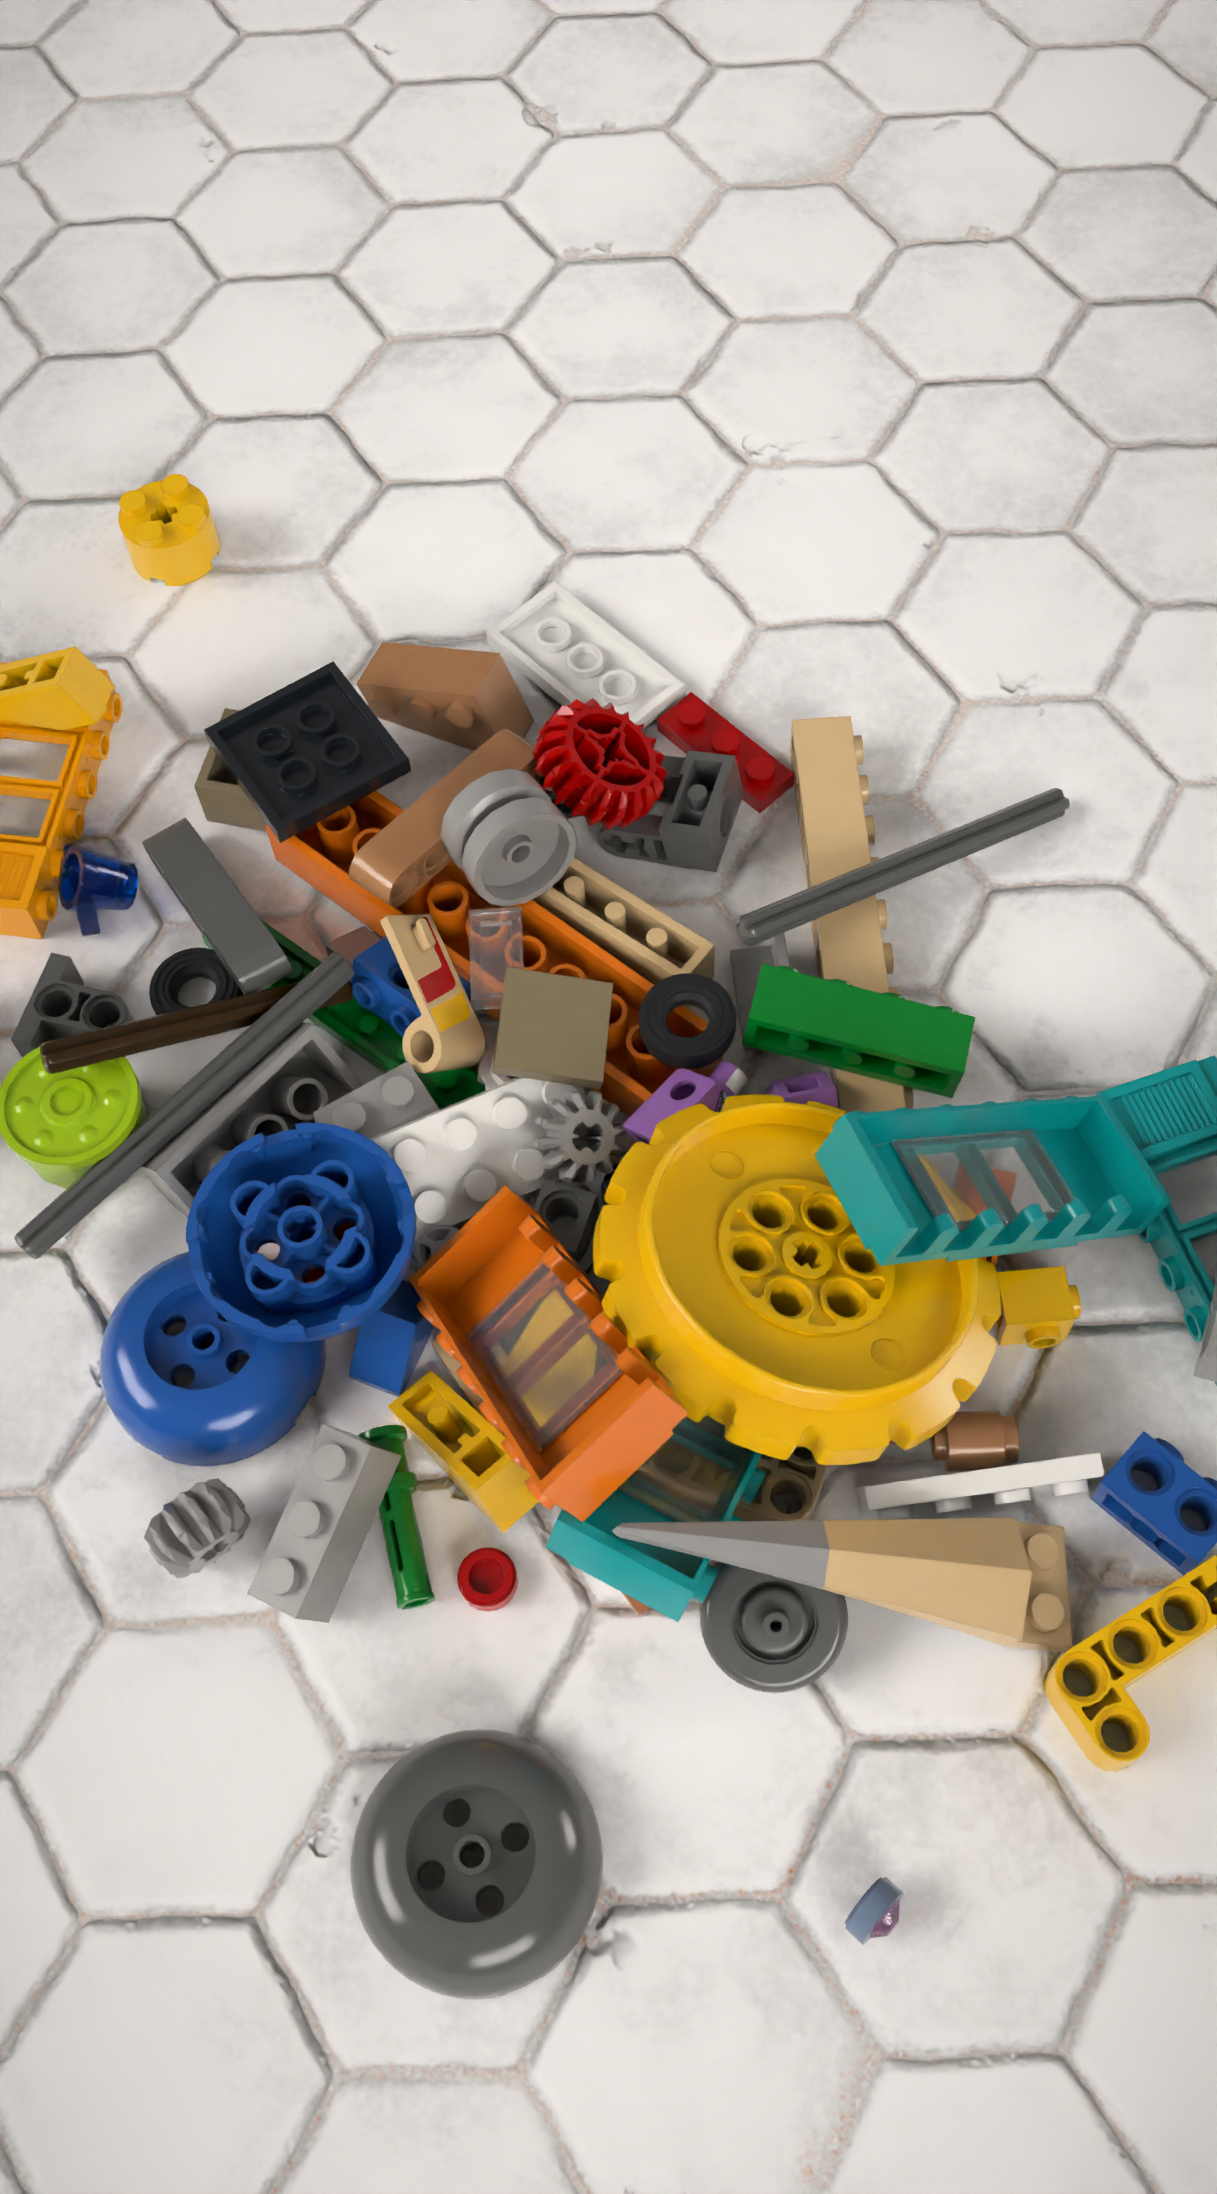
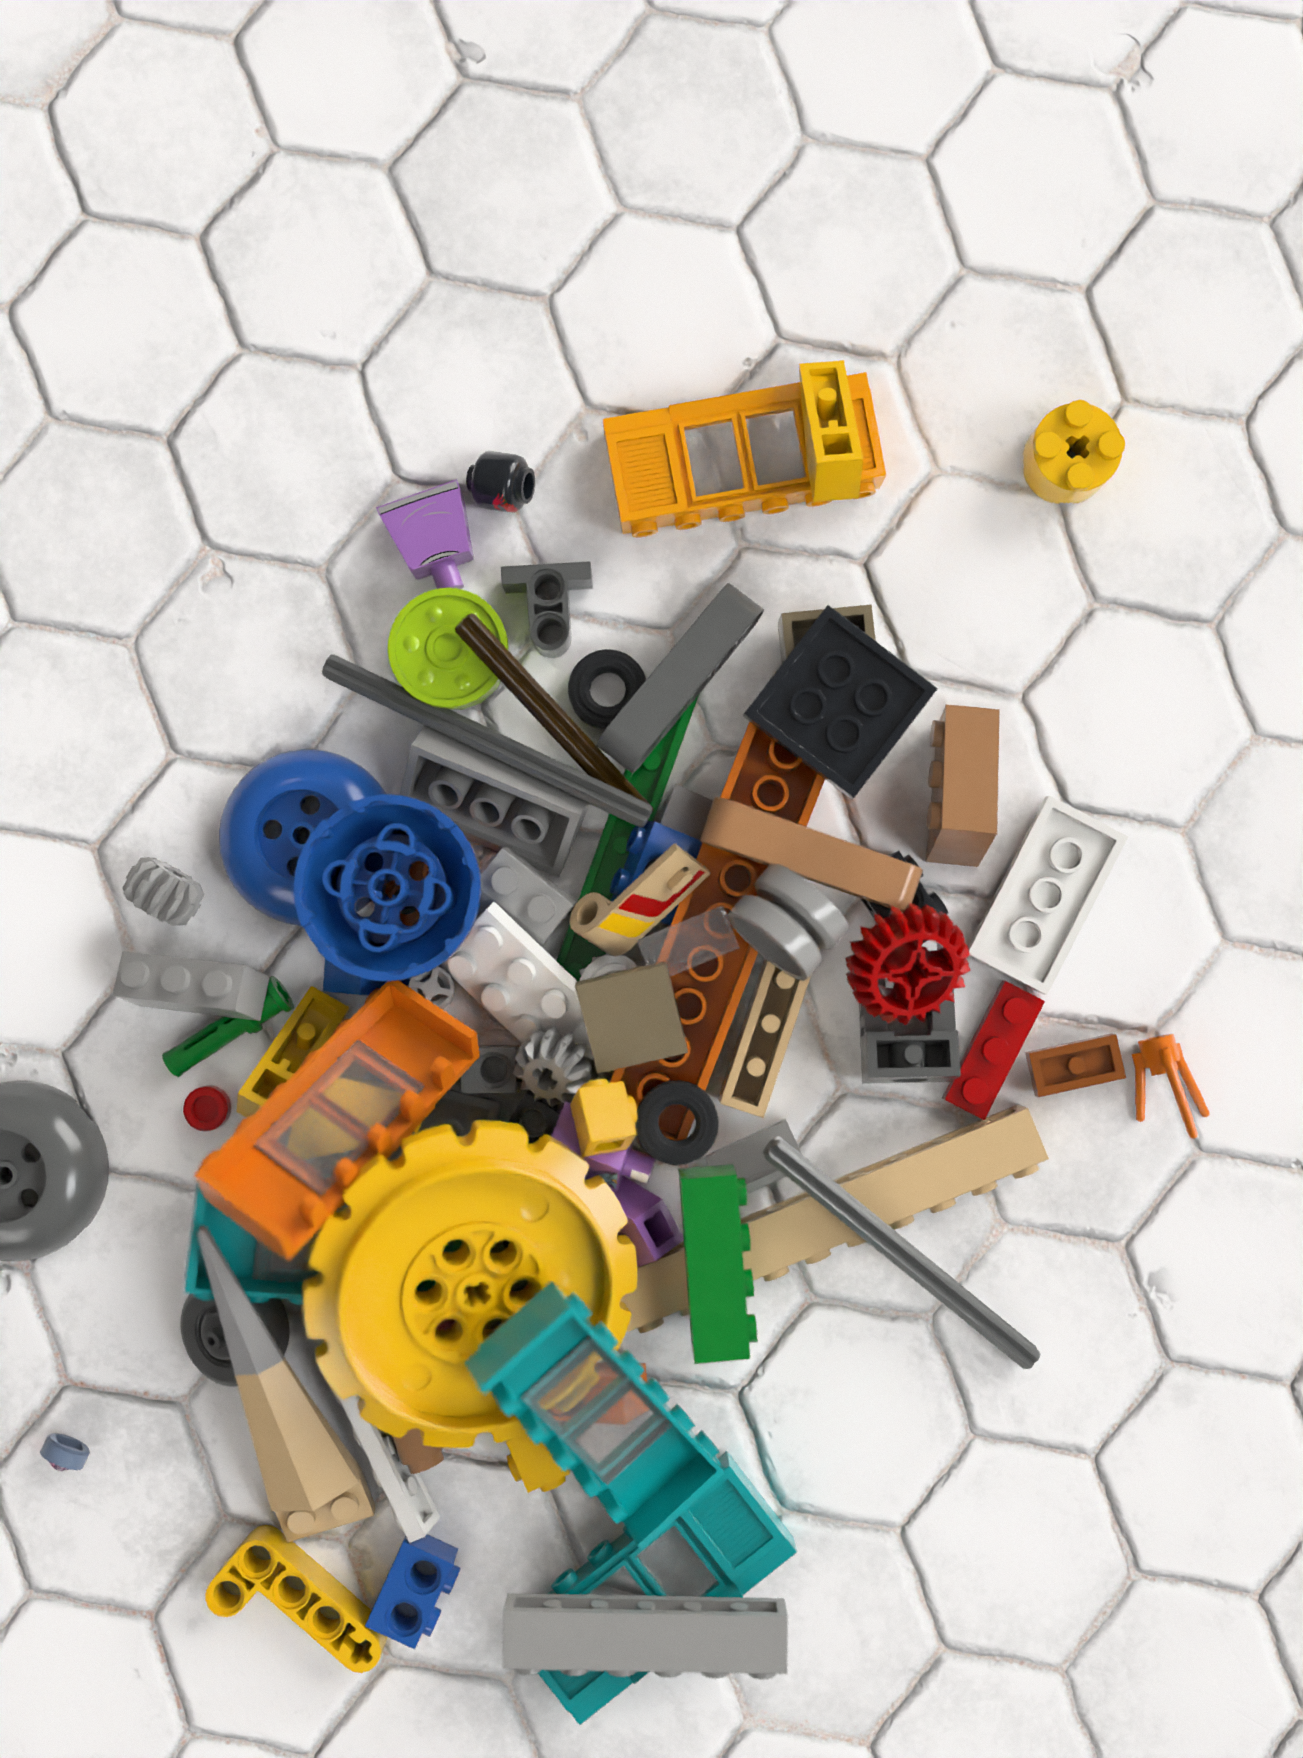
camera: 65 degrees right, 25 degrees up
(94, 883) = (672, 563): clear blue piece -> none
(652, 1078) = (603, 1117): none -> yellow brick
(765, 684) = (1075, 1065): none -> dark orange plate
(782, 612) = (1162, 1057): none -> orange plant

